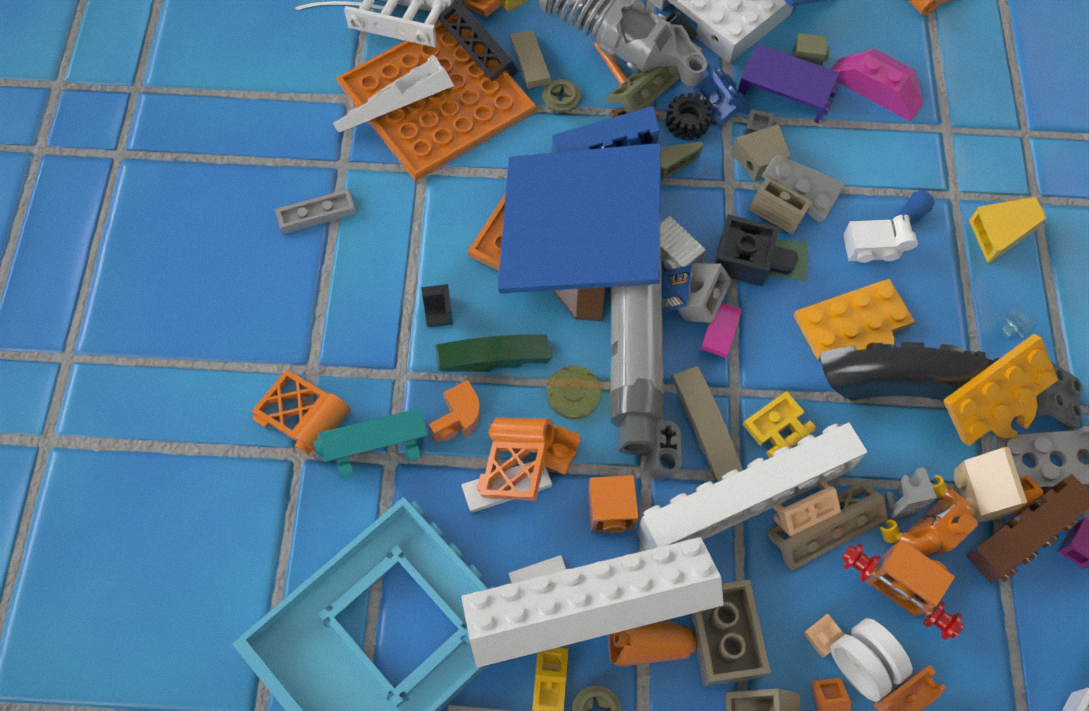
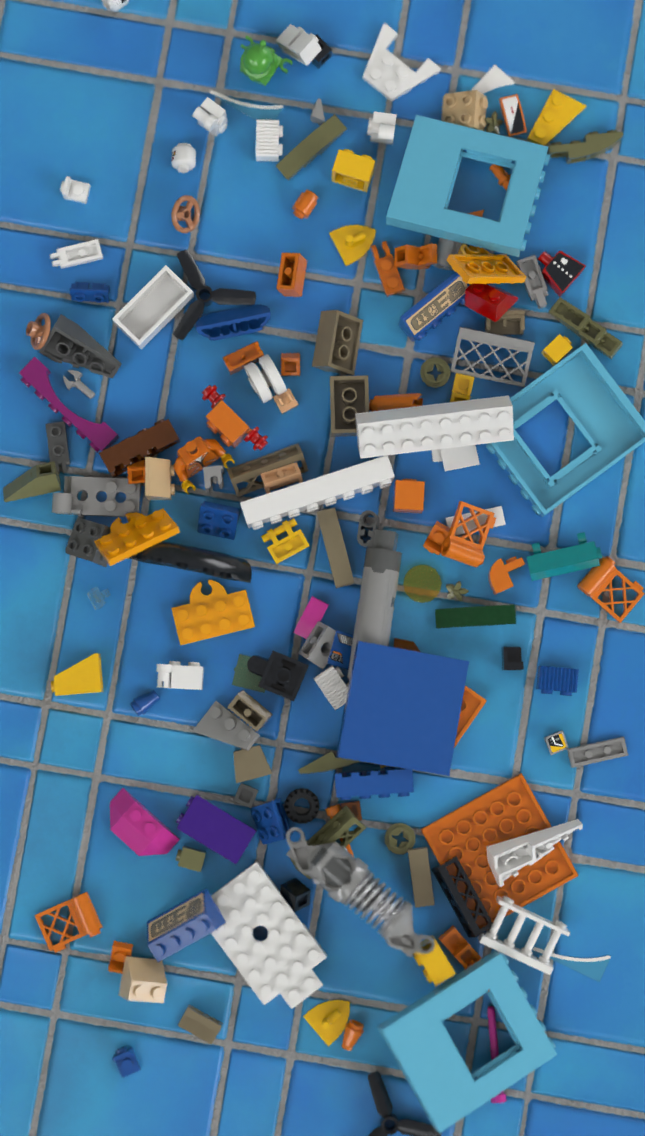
camera: 175 degrees left, 20 degrees up
(372, 217) = (556, 742): none -> slope
(373, 285) = (557, 679): none -> blue brick
(525, 385) = (456, 591): none -> olive plant
(886, 445) = (218, 520): none -> blue bracket

